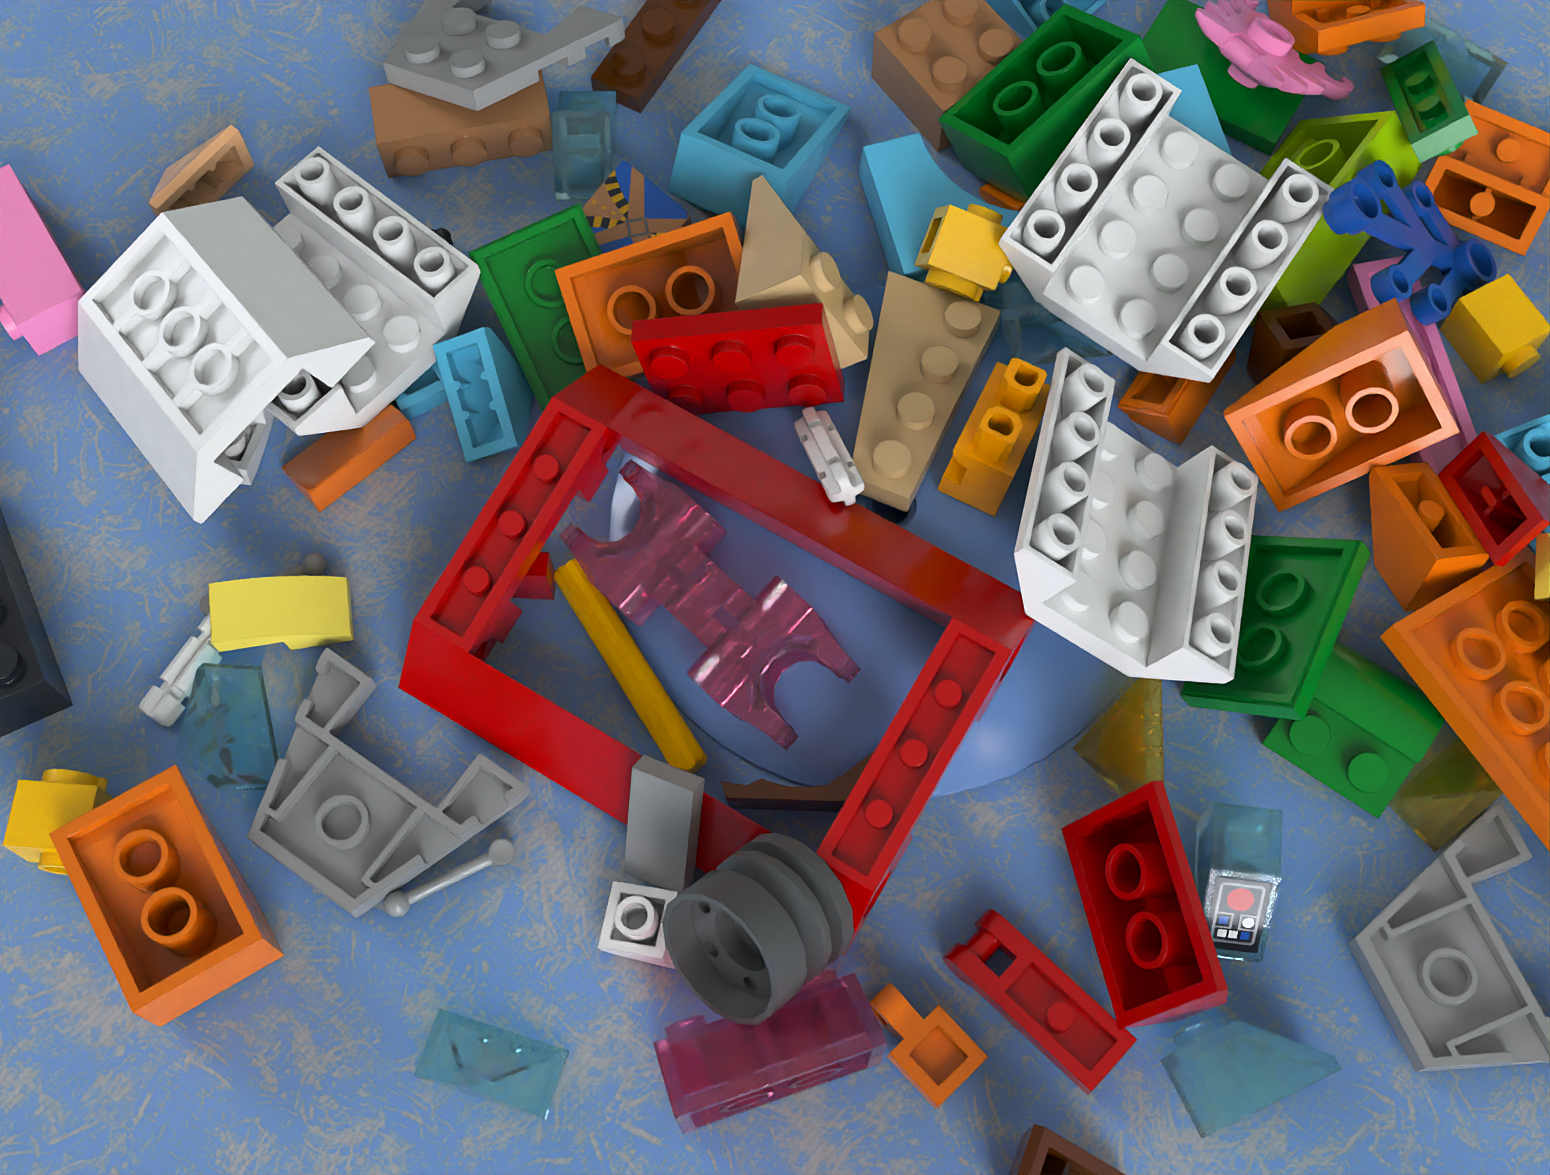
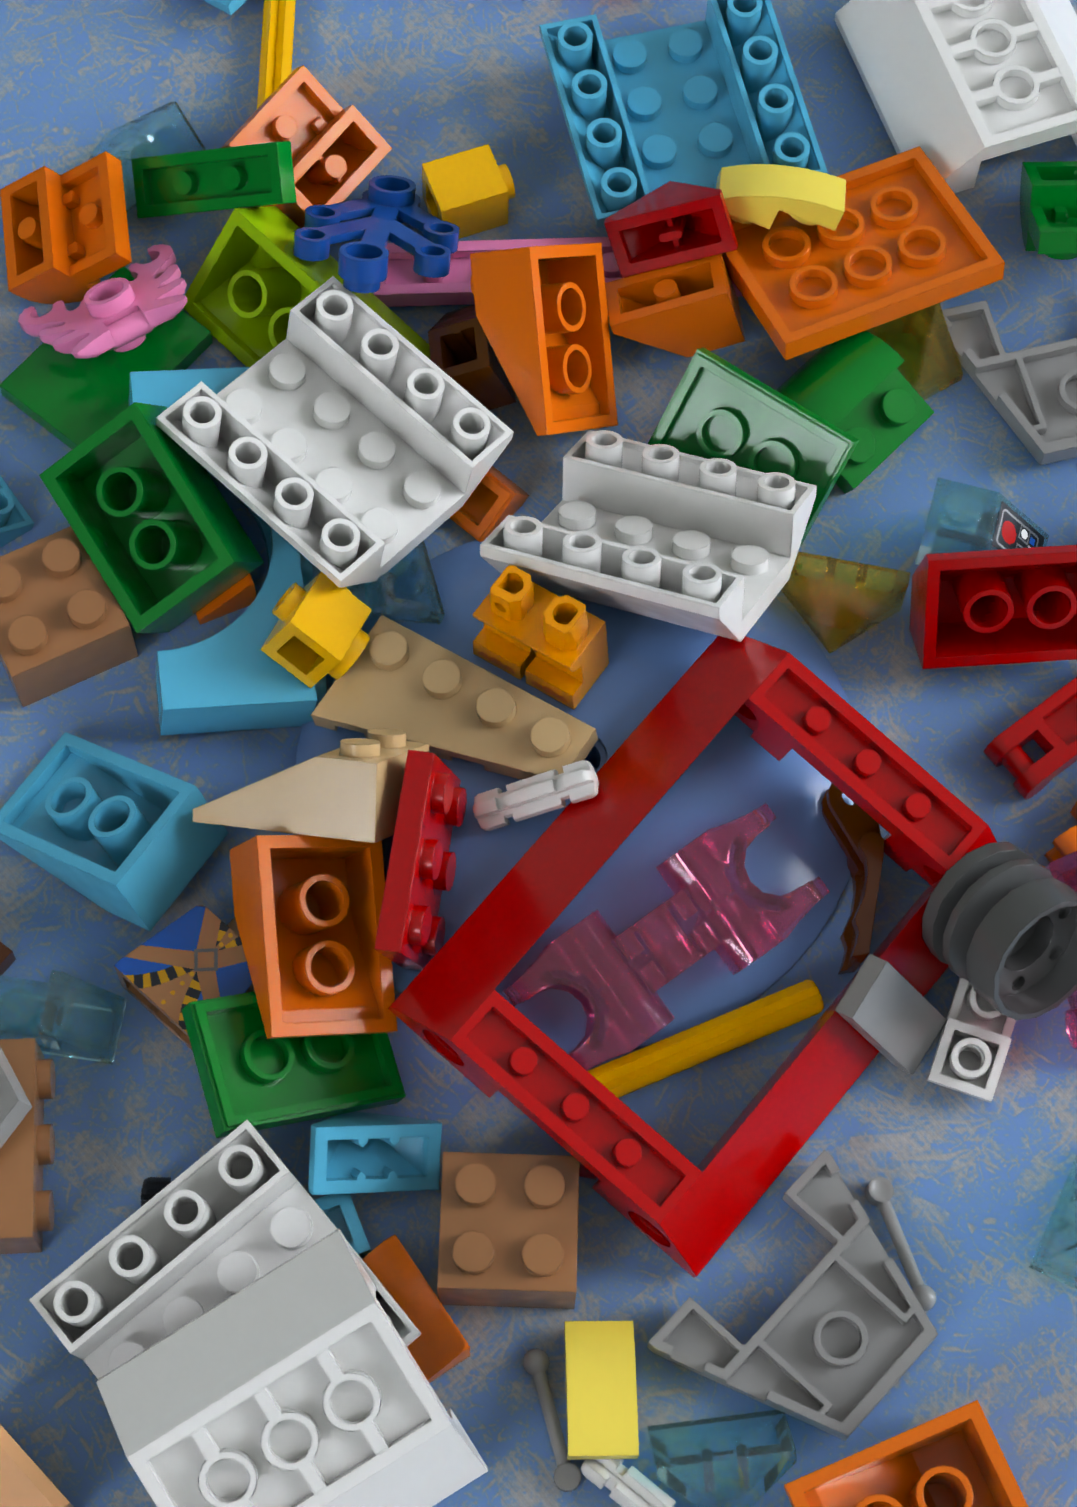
camera: 85 degrees left, 0 degrees up
(413, 509) = (508, 1230): none -> medium nougat brick

